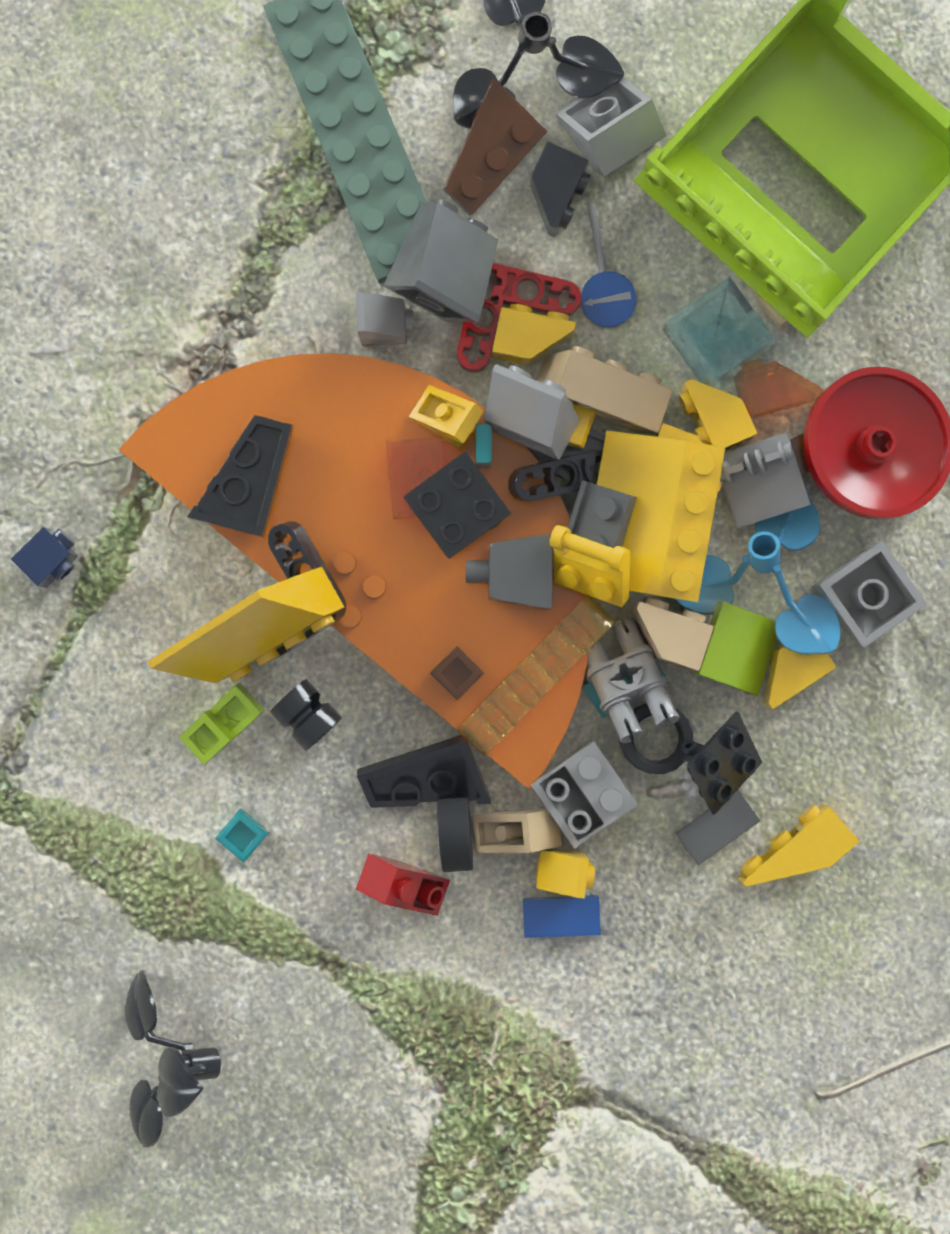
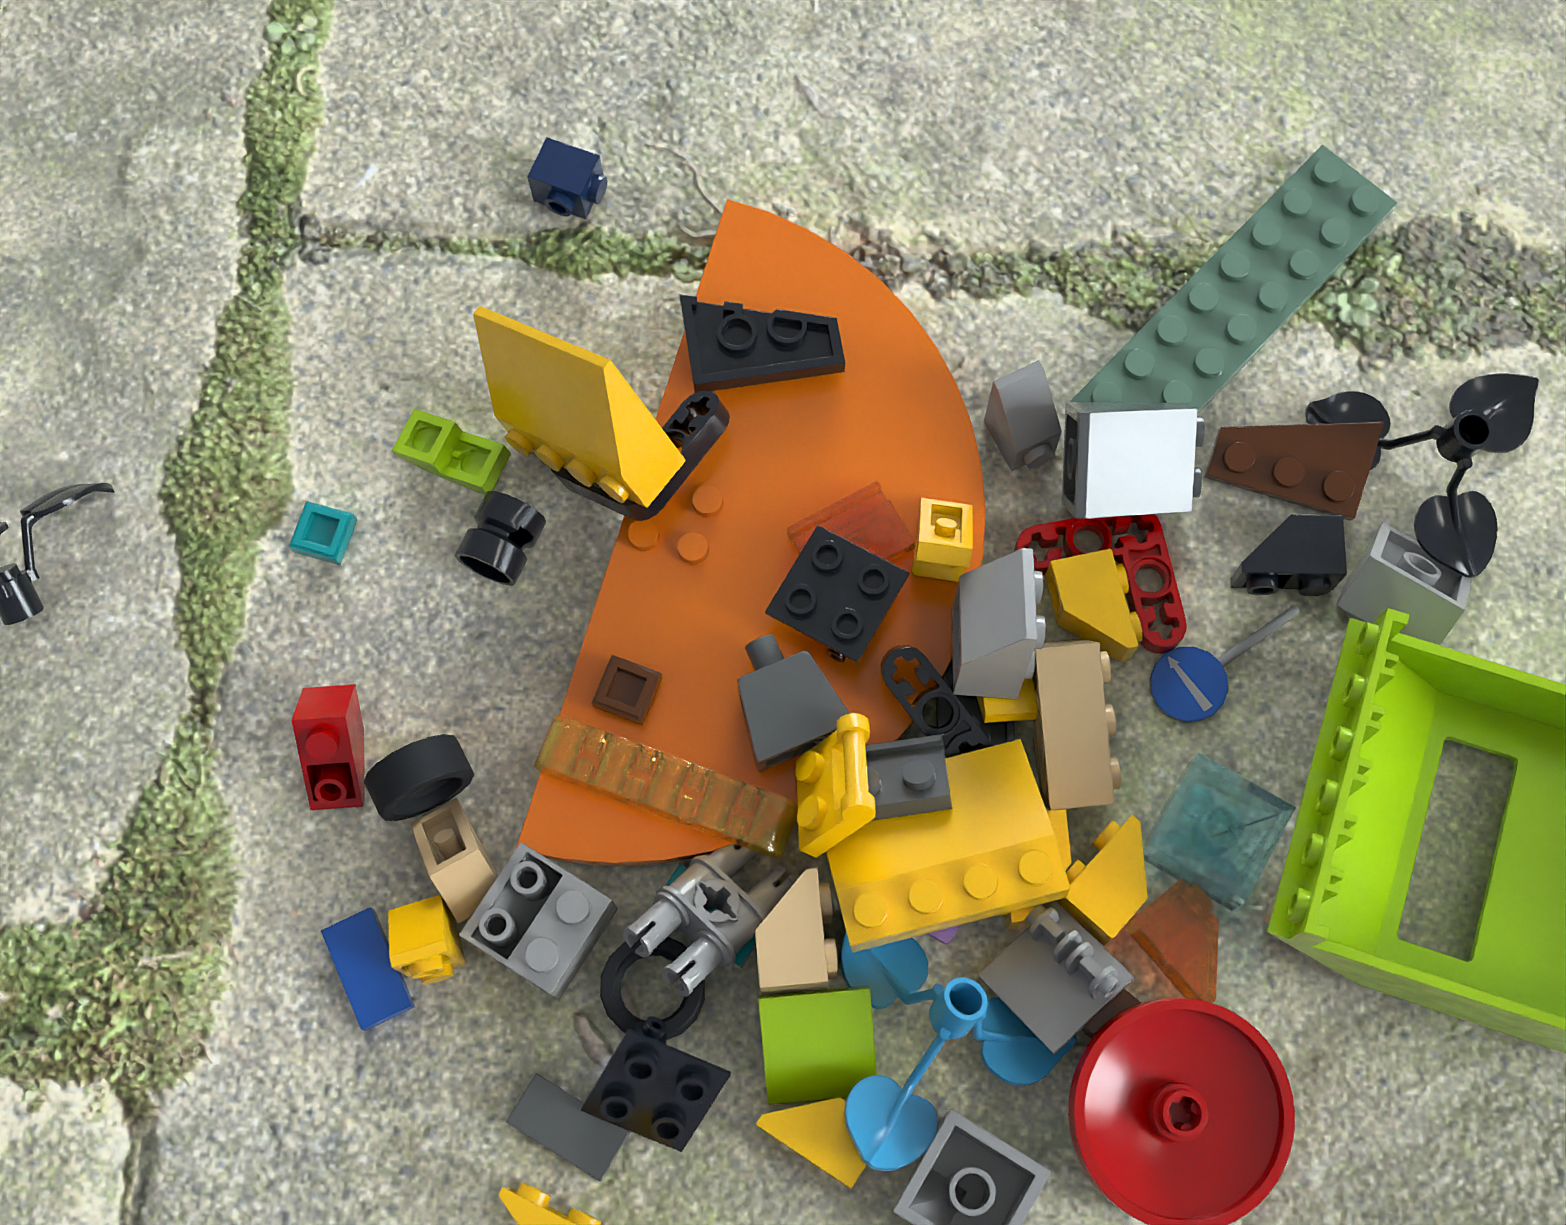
camera: 70 degrees right, 15 degrees down
(425, 775) = (484, 715): black wing -> none
(483, 445) = (926, 595): teal tile -> none

